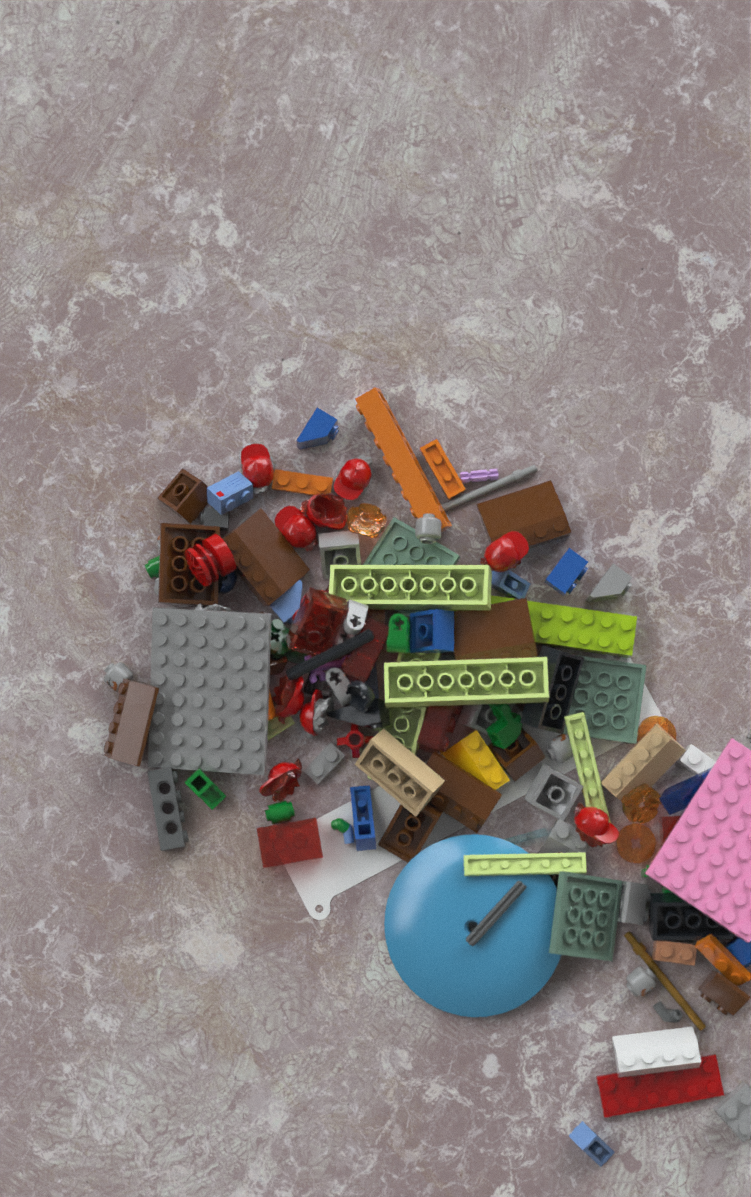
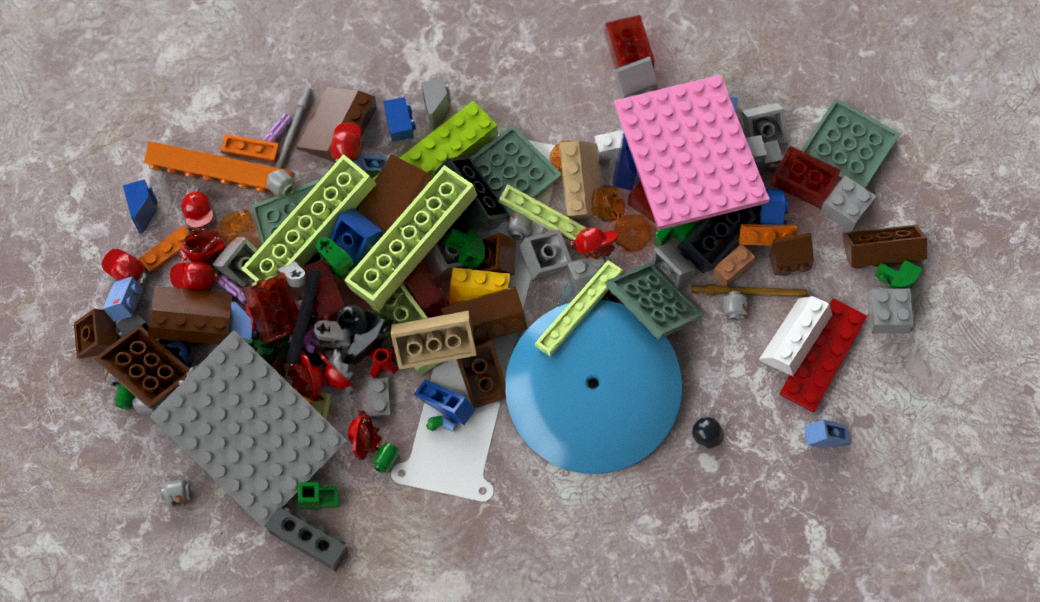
camera: 45 degrees left, 15 degrees down
(131, 722) = (217, 506): slope -> none
(210, 560) = (155, 343): red wheel -> none
(289, 842) = (414, 467): clear red brick -> none
(314, 567) = (232, 288): none -> lavender axle
(495, 913) = (597, 357): dark grey axle -> none
(514, 1045) = (707, 432): none -> black hair
(668, 1015) = (776, 308): dark grey arm -> none

